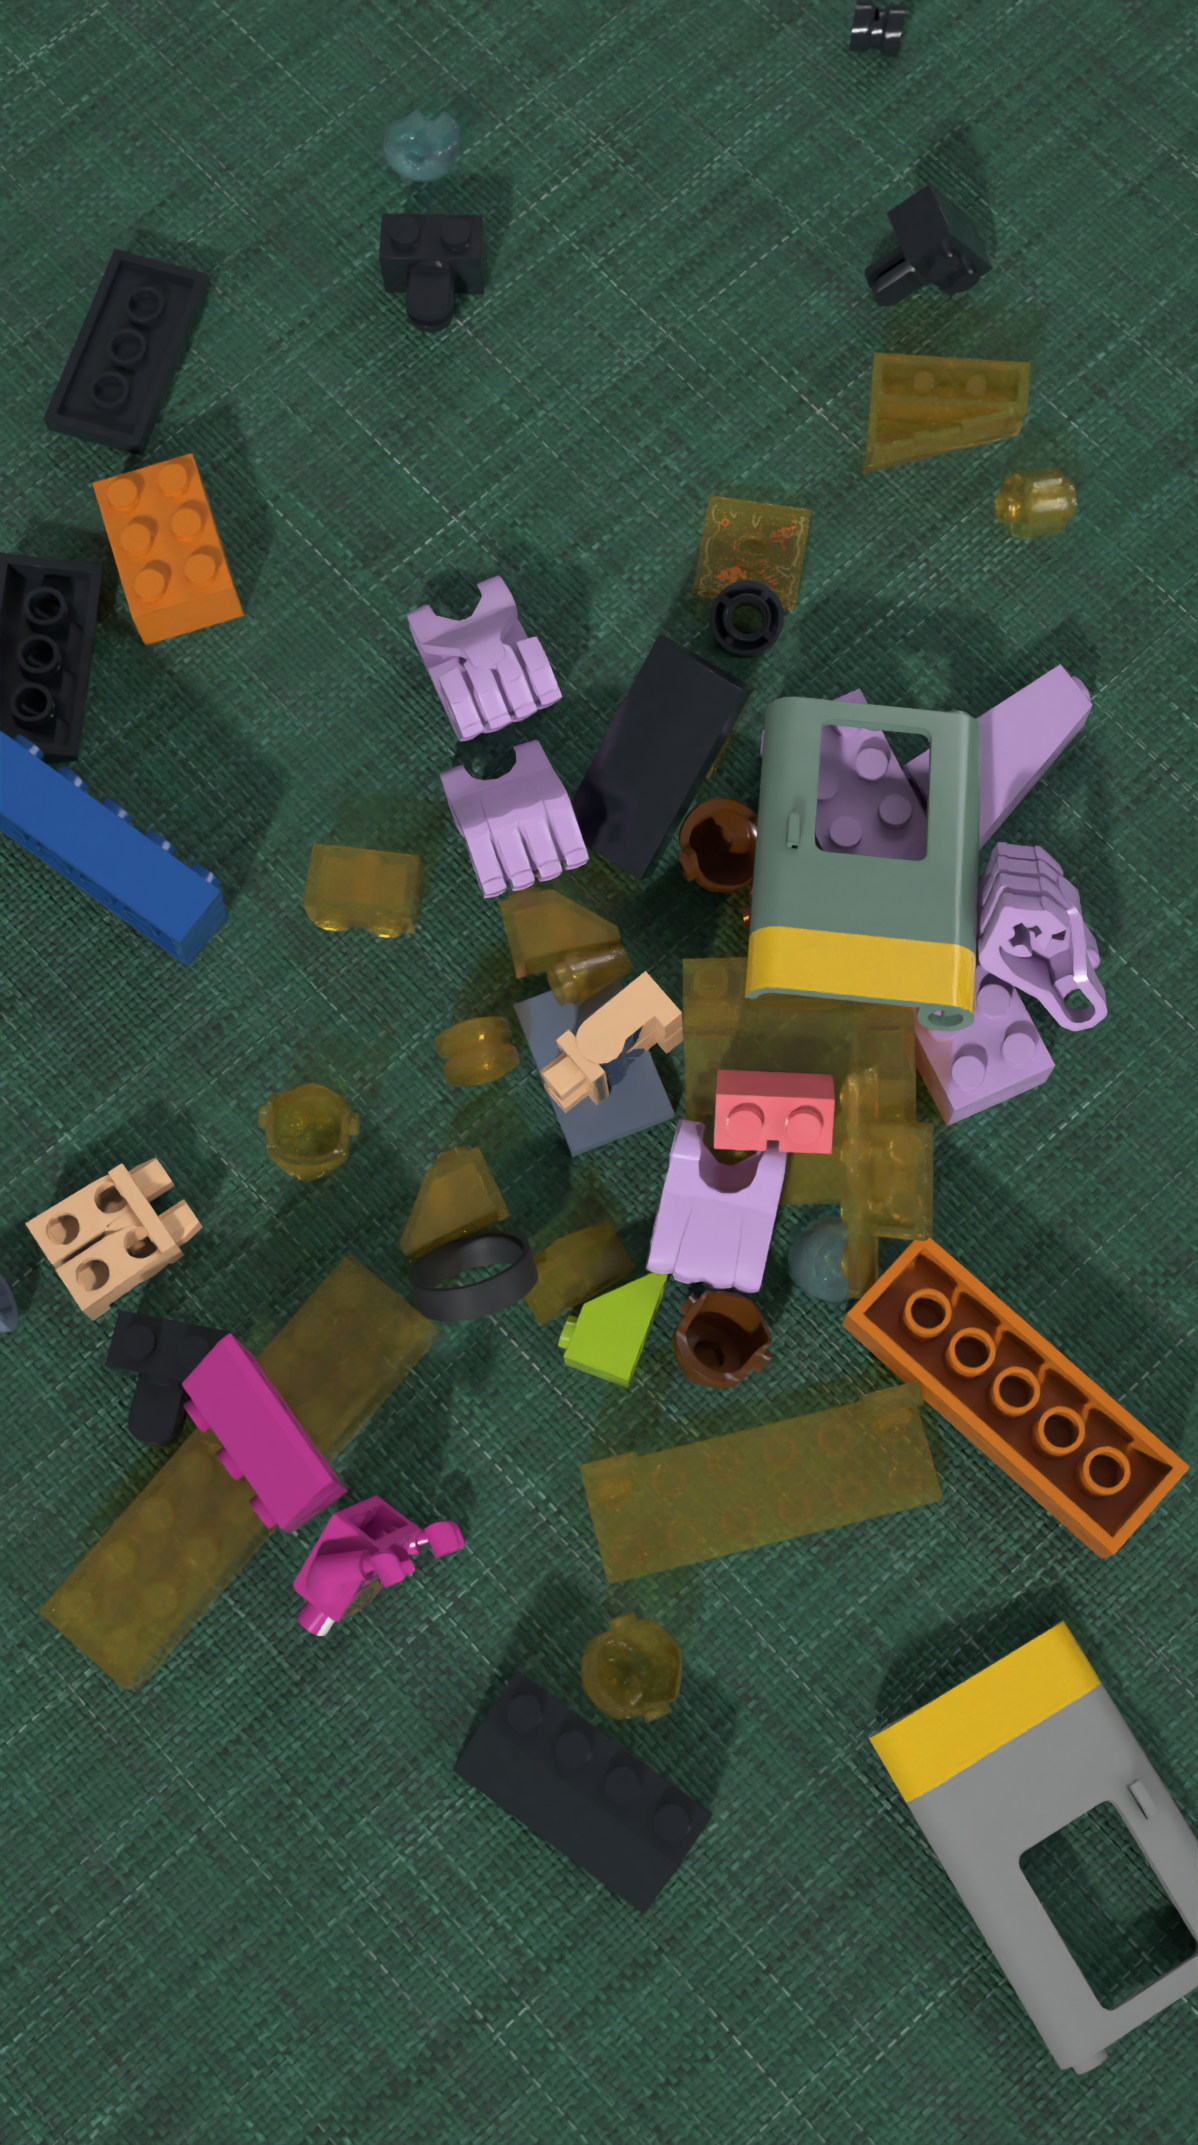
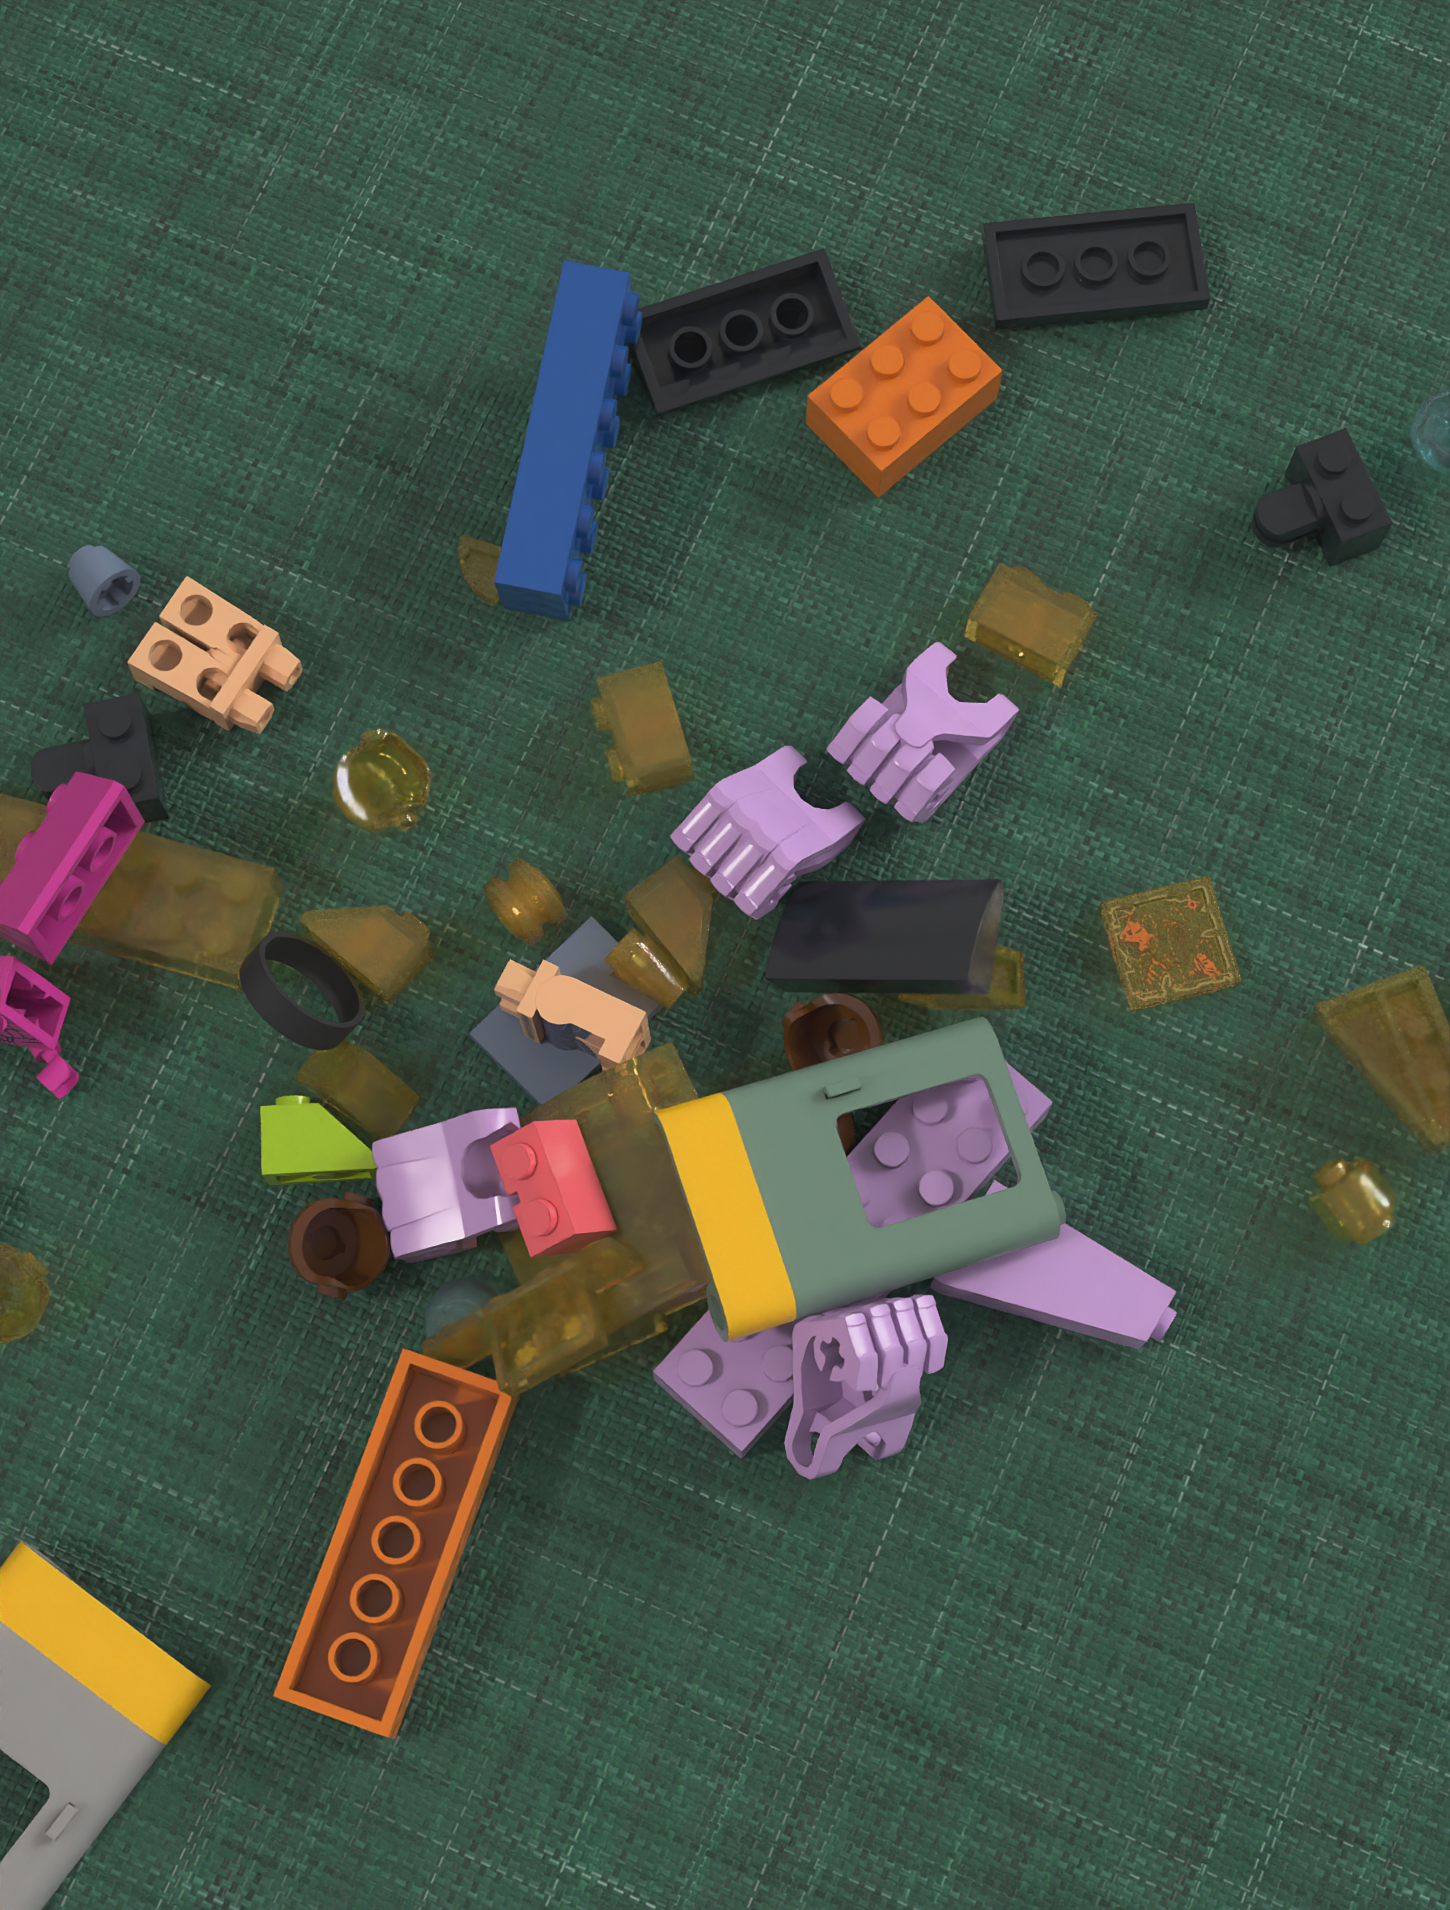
camera: 60 degrees right, 0 degrees up
(142, 967) = (479, 566): none -> clear yellow tile
(424, 536) = (1031, 623): none -> clear yellow brick
(761, 1485) = (222, 1345): clear yellow bracket -> none
(763, 601) = (1062, 954): black wheel -> none

